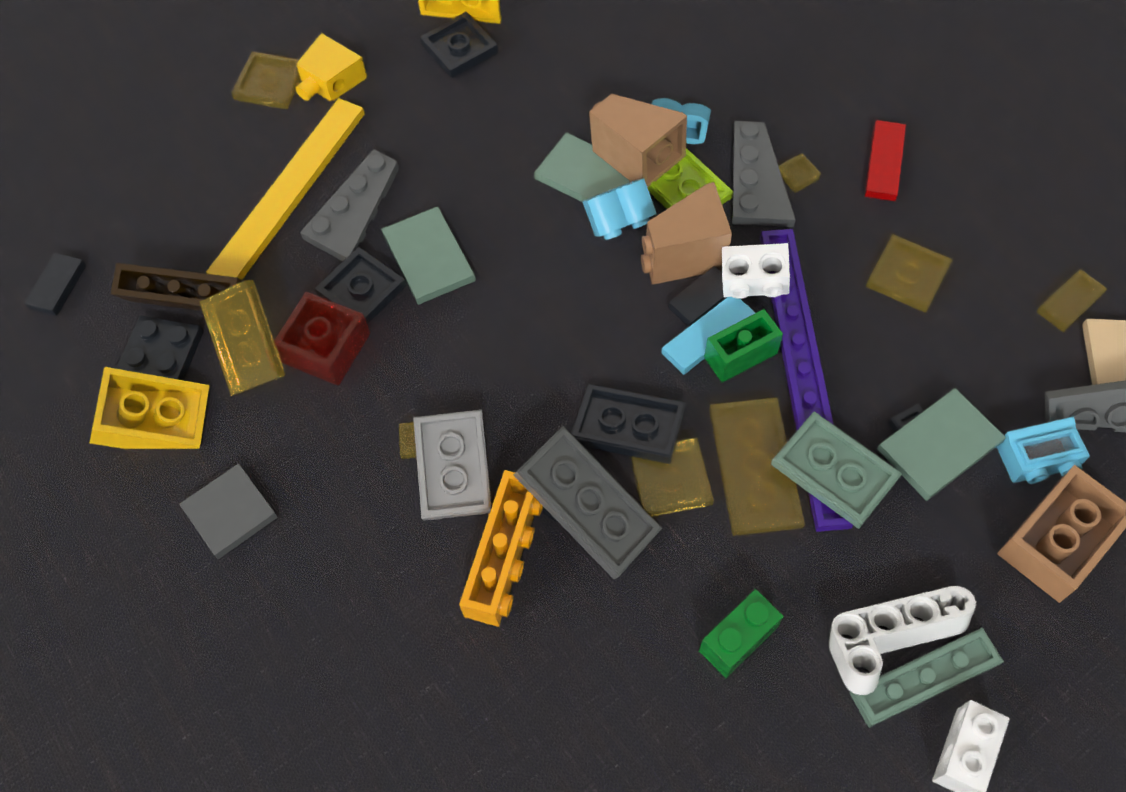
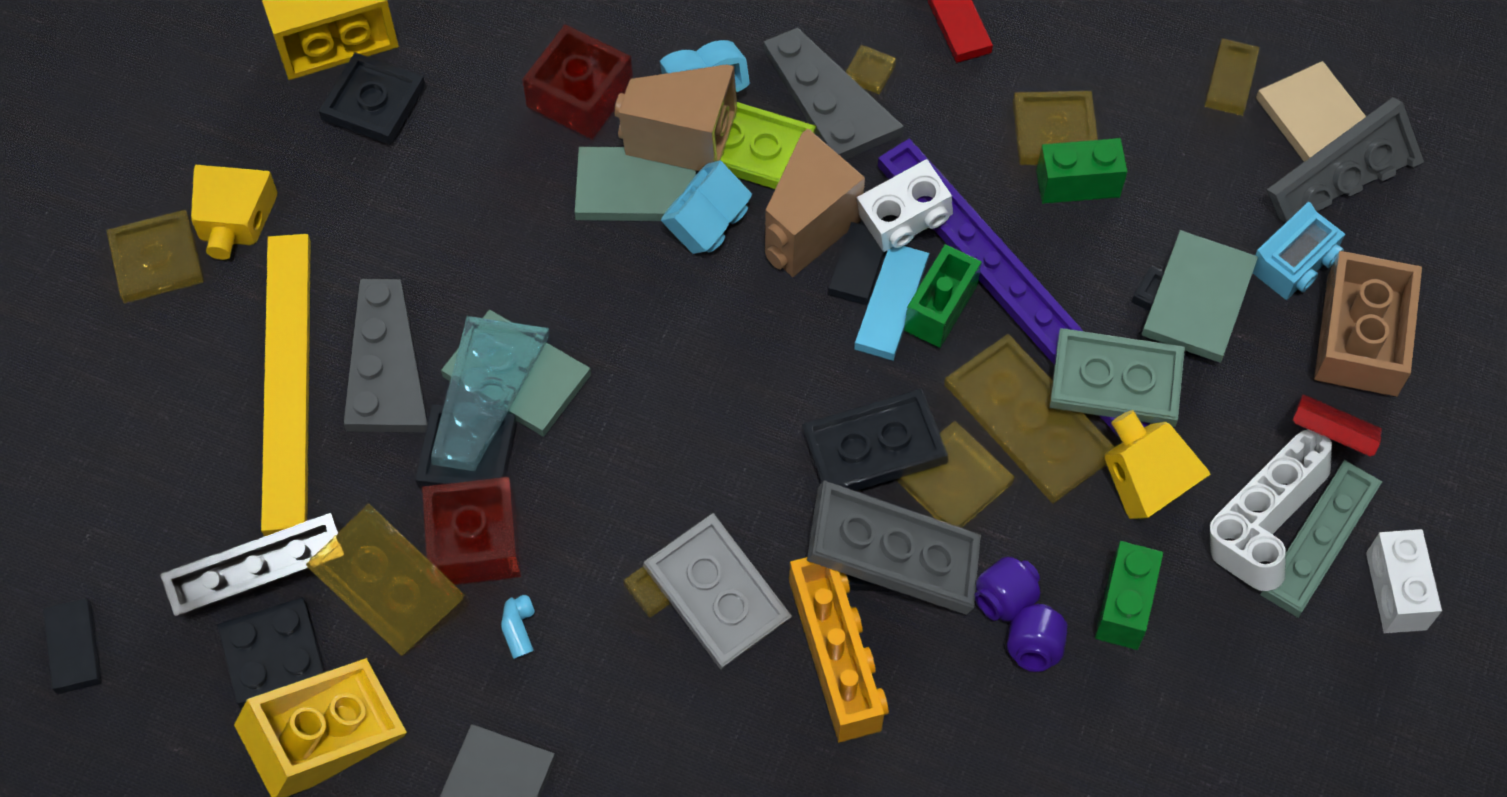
camera: 35 degrees left, 0 degrees up
(310, 412) = (512, 625): none -> medium azure arm
(392, 250) = (483, 385): none -> clear light blue wing
(584, 83) = (577, 81): none -> clear red brick
(651, 625) = (1037, 637): none -> dark purple head
(653, 577) = (1007, 588): none -> dark purple head
(819, 547) = (1151, 465): none -> yellow torso
(906, 310) = (1081, 170): none -> green brick
(989, 597) = (1337, 425): none -> red tile

